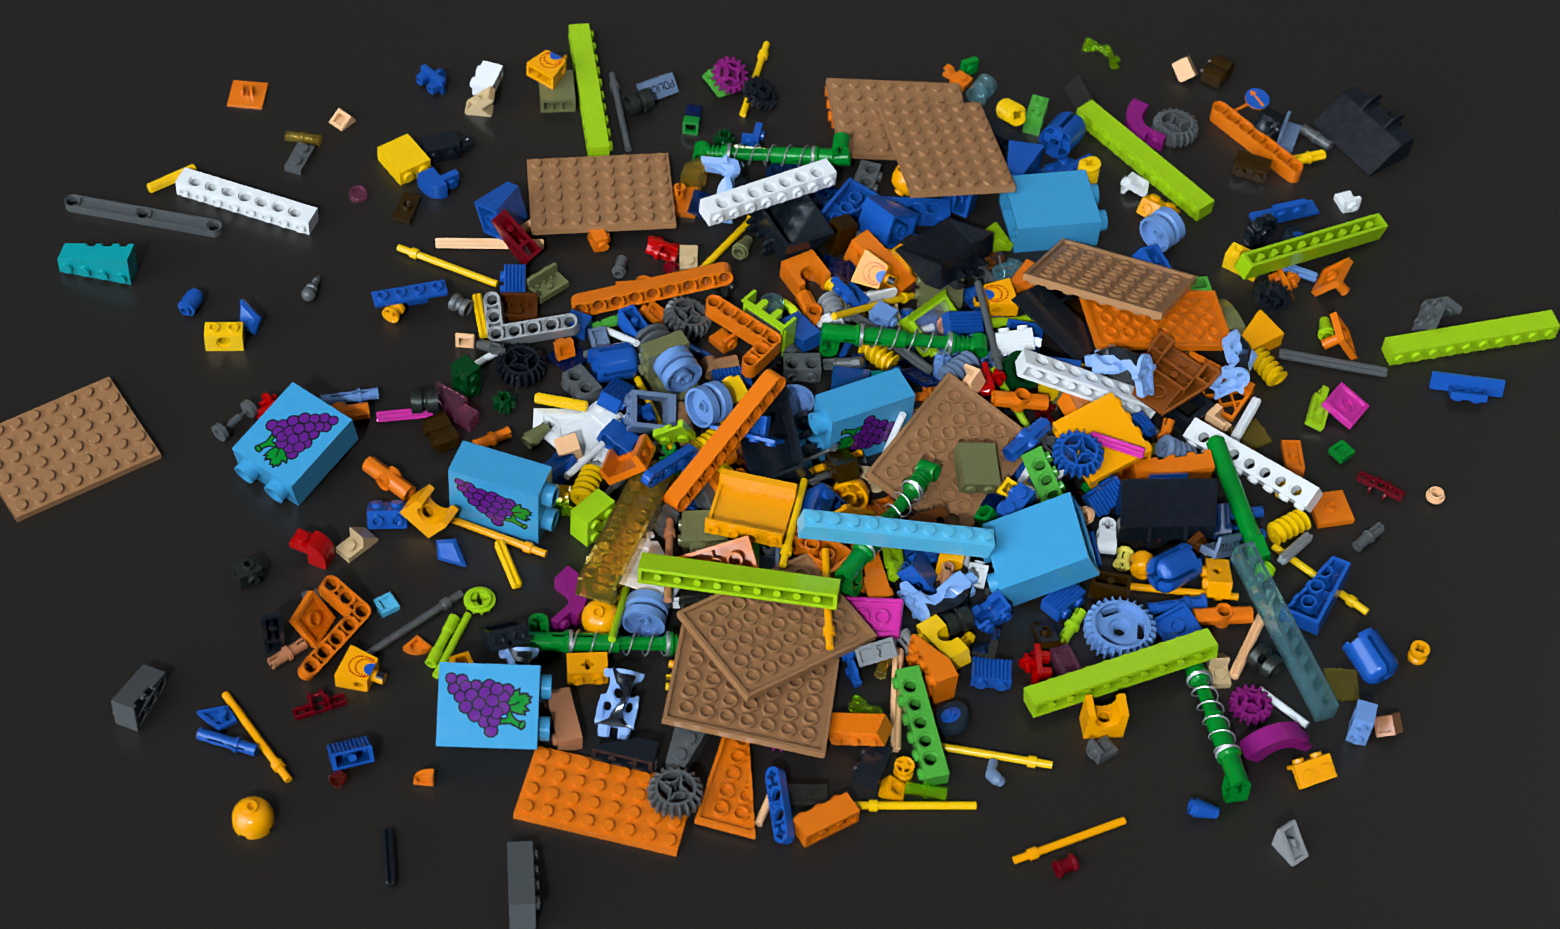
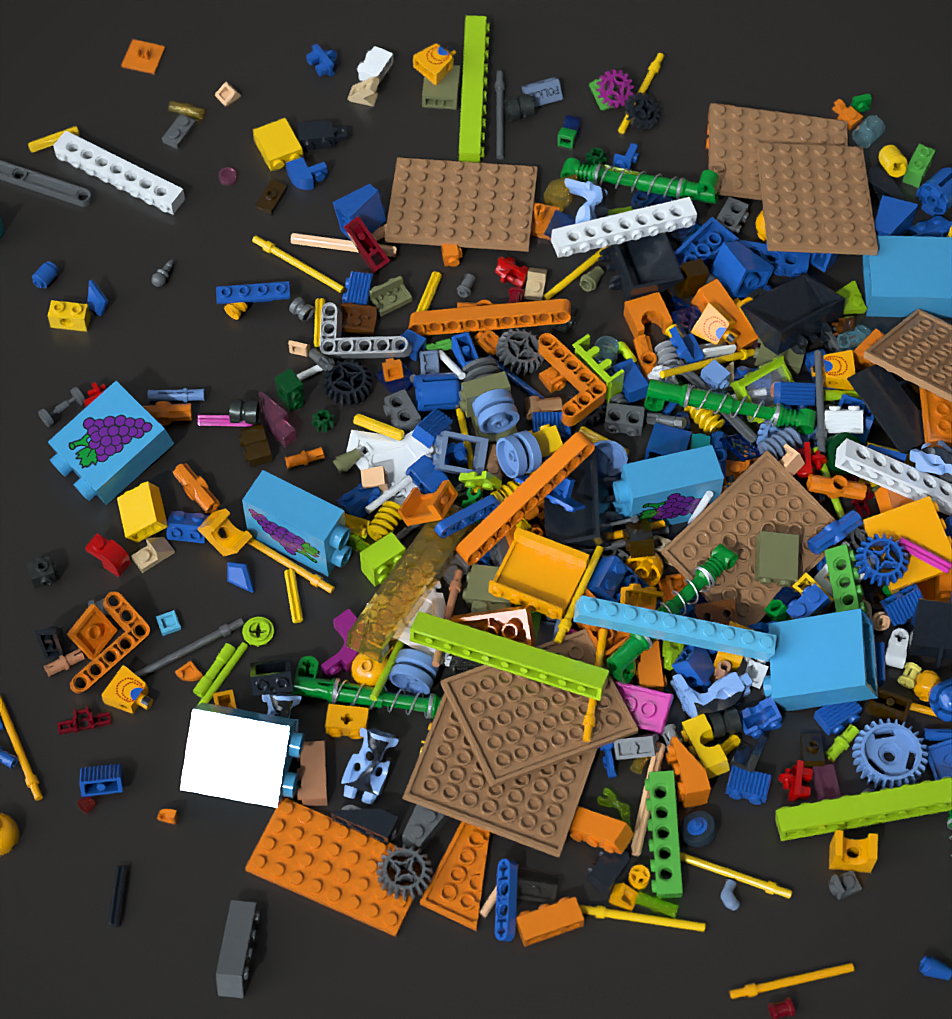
camera: 15 degrees right, 10 degrees up
(339, 504) = (142, 512): none -> yellow brick
(585, 275) = (429, 292): none -> yellow axle

